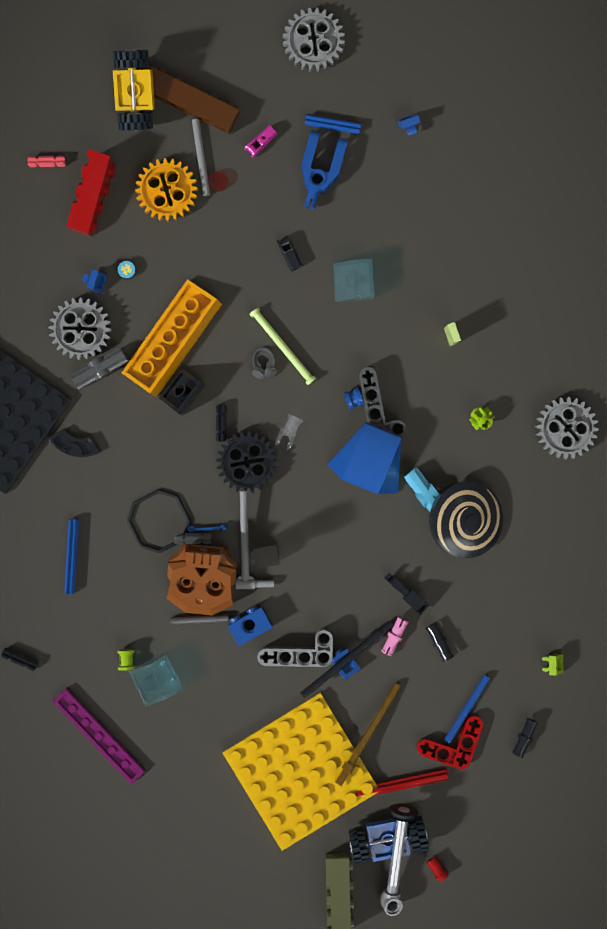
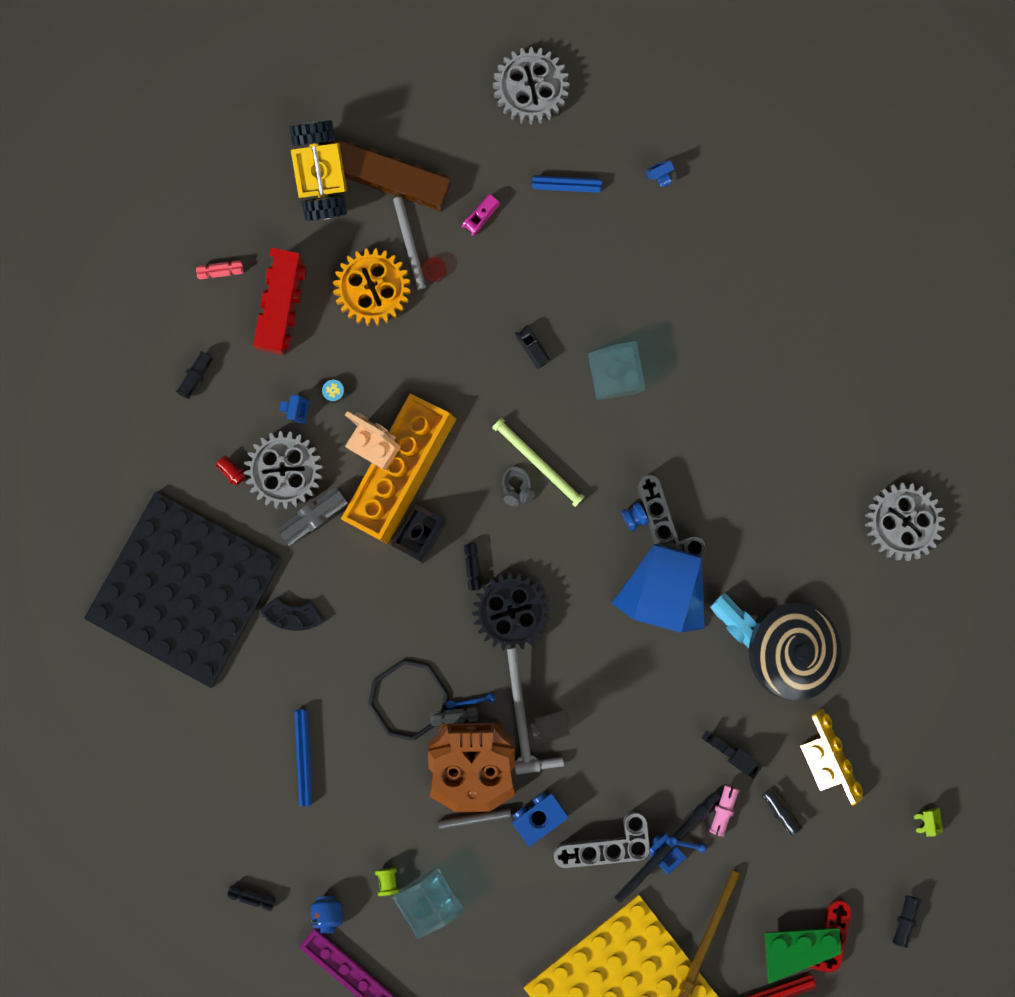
camera: 15 degrees left, 5 degrees down
(17, 244) = (194, 375): none -> black pin
(38, 324) = (233, 473): none -> red pin
(76, 678) = (326, 914): none -> blue head
(152, 314) = (372, 441): none -> light nougat bracket
(289, 430) = (559, 565): clear piece -> none
(309, 173) = (545, 246): blue piece -> none
(350, 655) = (672, 841): none -> blue hinge
(438, 749) = (799, 949): none -> green wing
(452, 334) = (747, 422): yellowish green tile -> none
(467, 708) = (830, 888): blue bar -> none
(481, 418) = (797, 522): lime gear -> none
(481, 608) = (828, 761): none -> bracket

